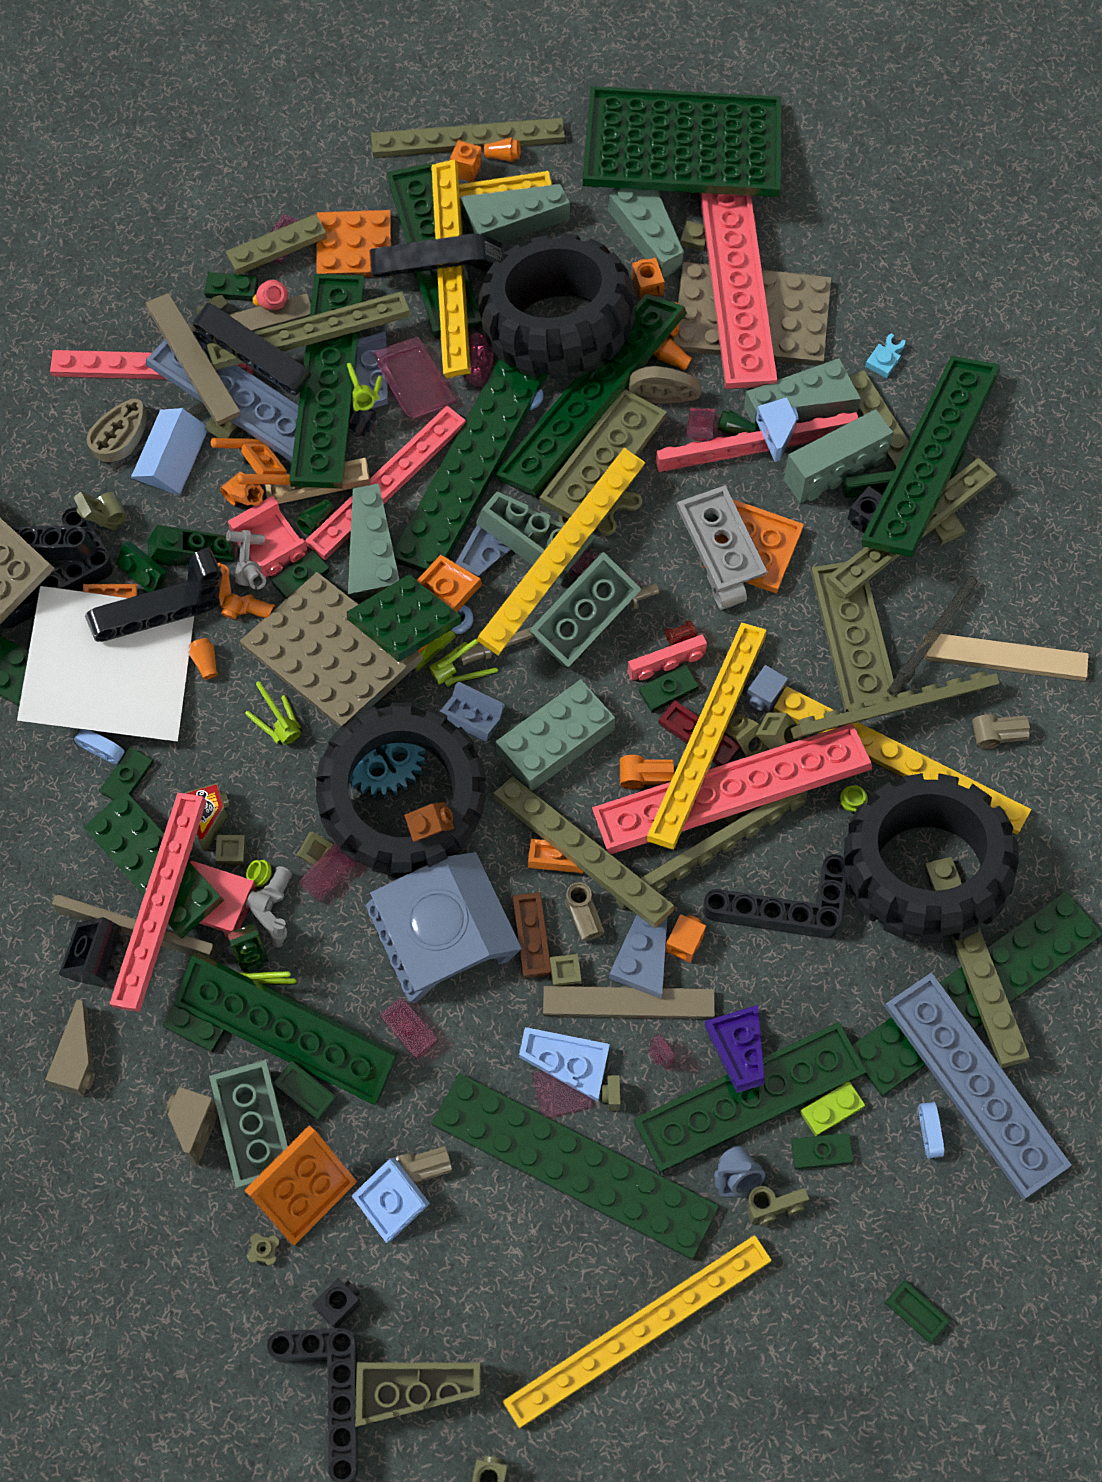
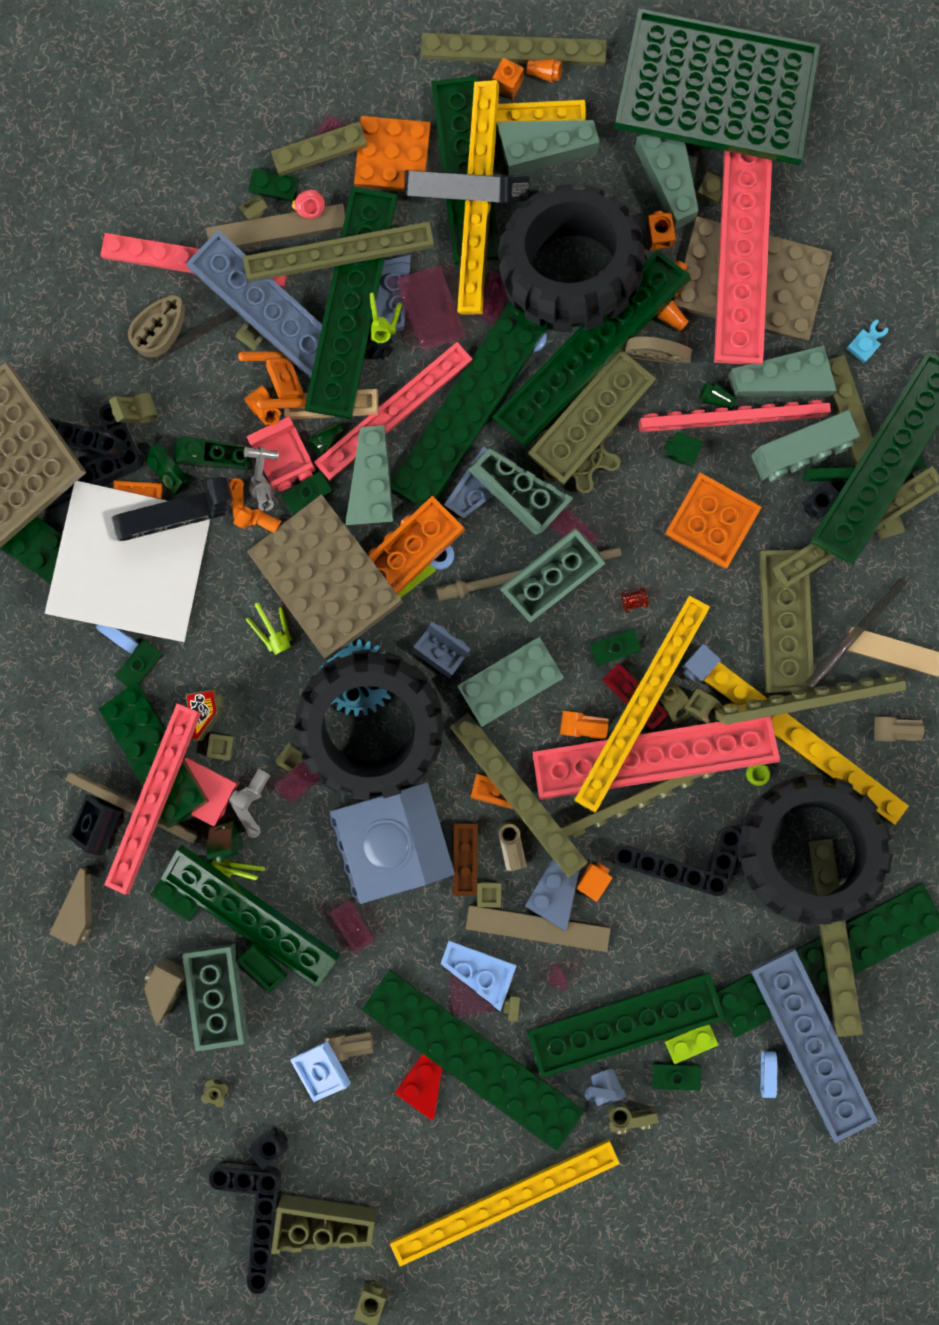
camera: 15 degrees right, 20 degrees up
(170, 450) = (202, 354): light blue slope -> none
(192, 359) = (228, 267): dark tan tile -> none
(203, 656) = (214, 564): orange cone -> none
(218, 327) = (282, 270): black beam -> none
(259, 872) = (242, 771): lime plate -> none
(301, 1185) = (247, 1056): orange plate -> none
(403, 618) = (391, 561): dark green plate -> none
(429, 821) = (388, 770): dark orange bracket -> none
(444, 669) = (421, 603): lime plant -> none
(516, 1205) = (421, 1086): none -> red wing
(560, 552) = (540, 512): yellow plate -> none
(667, 658) = (618, 622): coral plate -> none
(701, 424) = (685, 393): clear pink plate -> none
(706, 476) = (682, 448): none -> dark green brick
(727, 563) = (685, 540): light grey hinge -> none
(739, 1046) = (623, 983): dark purple wing -> none
(777, 425) = (754, 410): light blue slope -> none
(917, 1312) = (729, 1217): dark green tile -> none

